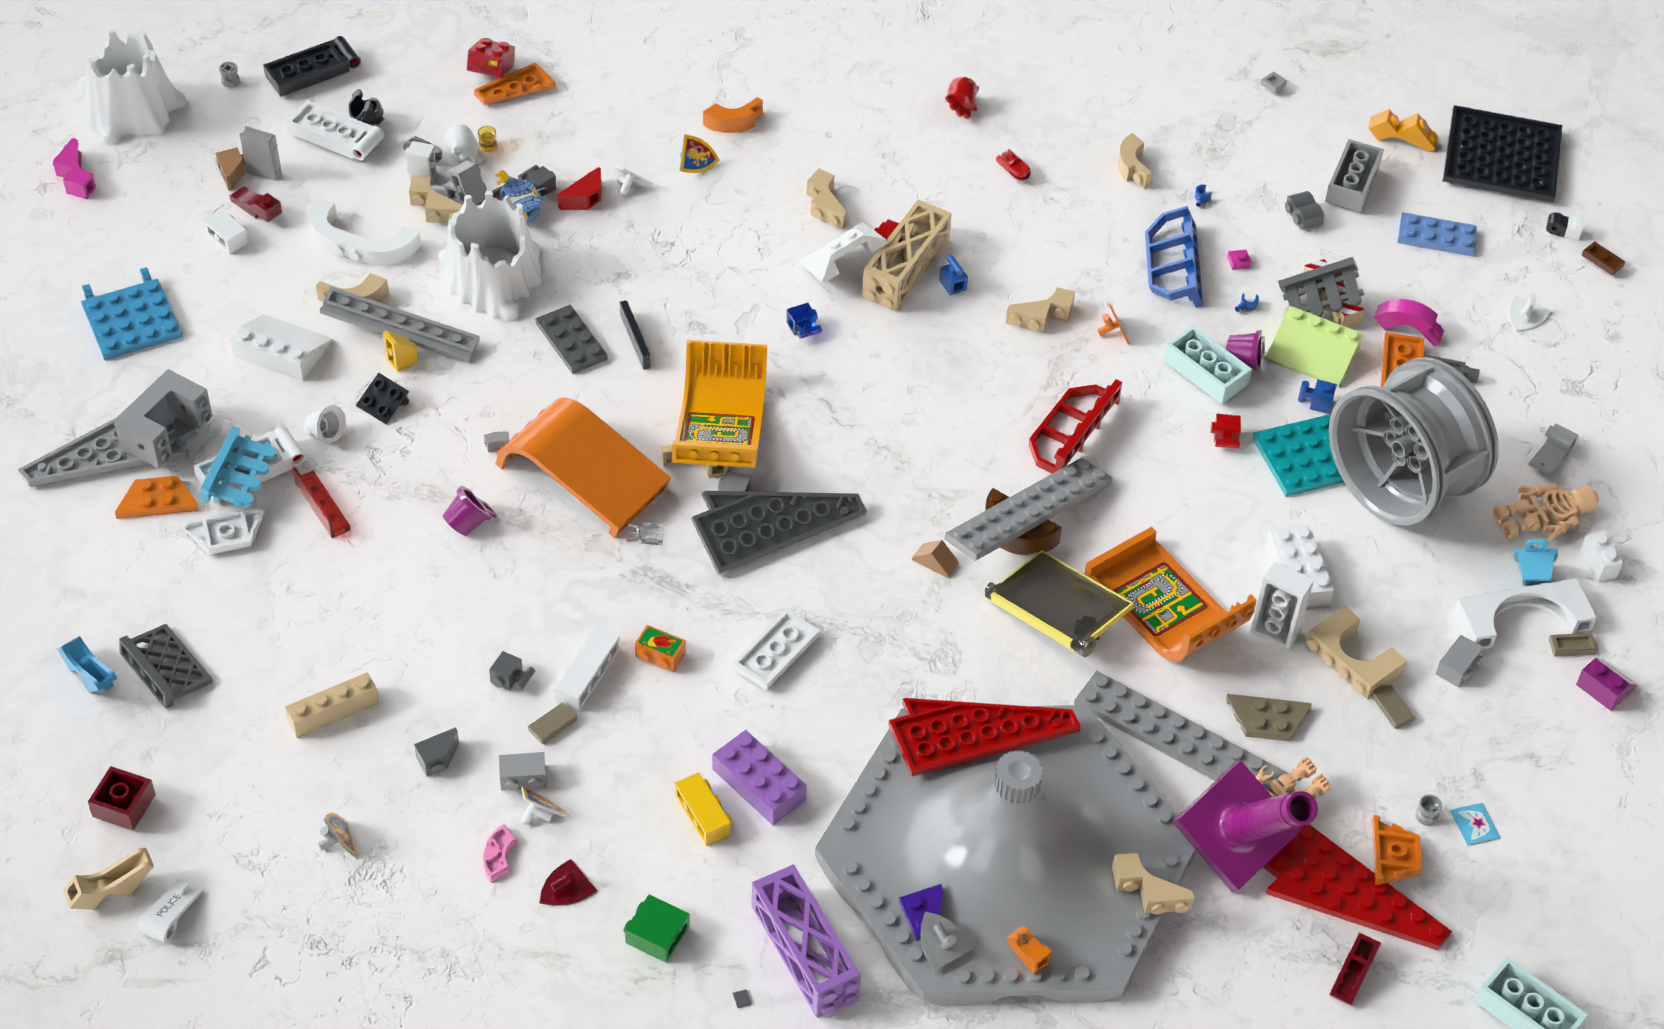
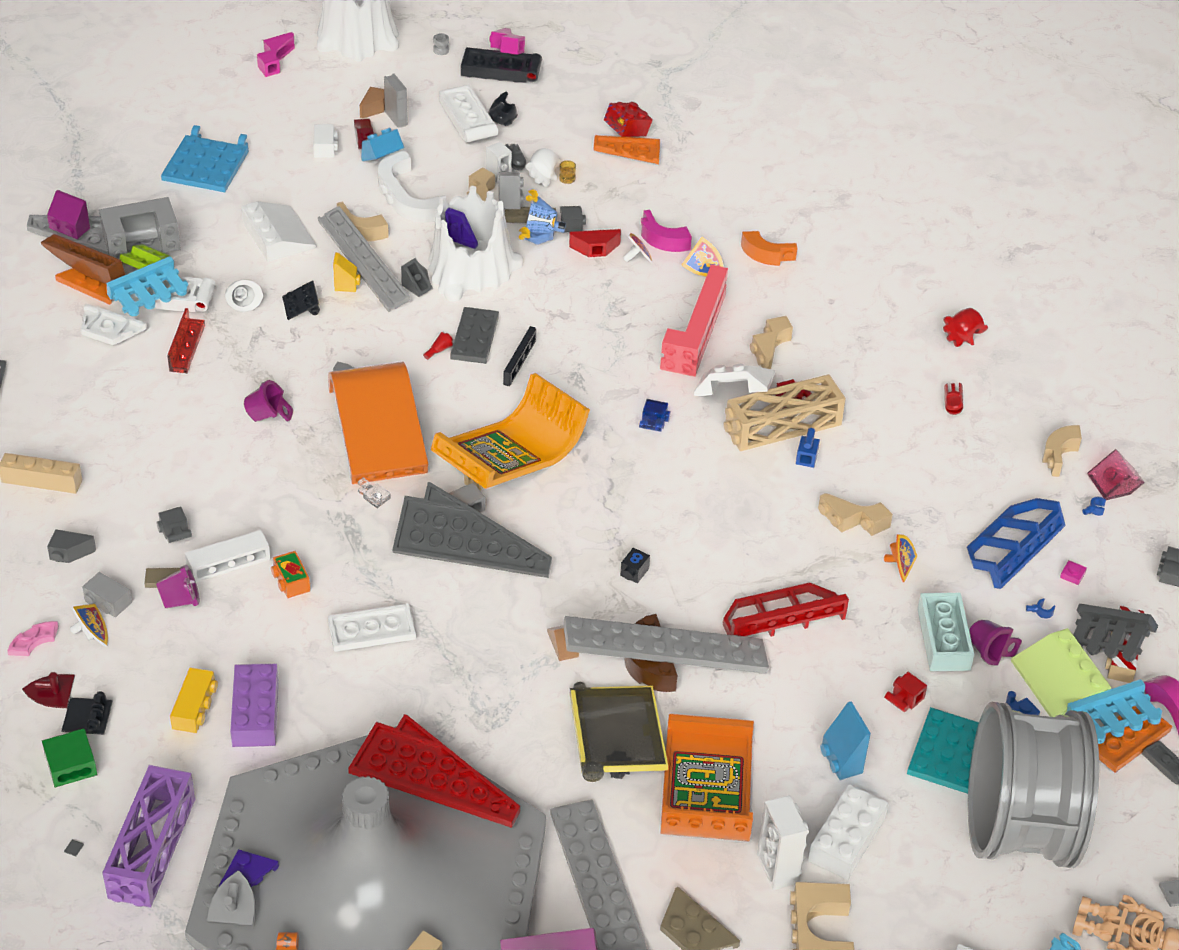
camera: 40 degrees right, 5 degrees down
(72, 445) = (68, 215): none -> magenta slope
(140, 479) = (85, 259): none -> dark orange slope
(193, 444) = (142, 256): none -> lime slope
(294, 38) = (507, 42): none -> dark pink arch
(296, 206) = (381, 145): none -> dark azure slope
(465, 317) = (415, 278): none -> dark grey slope
(473, 235) = (459, 228): none -> dark purple wing
(554, 361) = (441, 343): none -> red cone
(585, 723) = (179, 588): none -> magenta container
(625, 883) = (88, 714): none -> black hinge
(634, 155) = (662, 237): none -> dark pink arch
(769, 236) = (686, 349): none -> coral brick
(925, 459) = (635, 565): none -> black brick
(1193, 161) = (1115, 476): none -> clear pink slope
(1237, 497) = (846, 743): none -> dark azure slope
(1372, 341) = (1121, 701): none -> medium azure fence

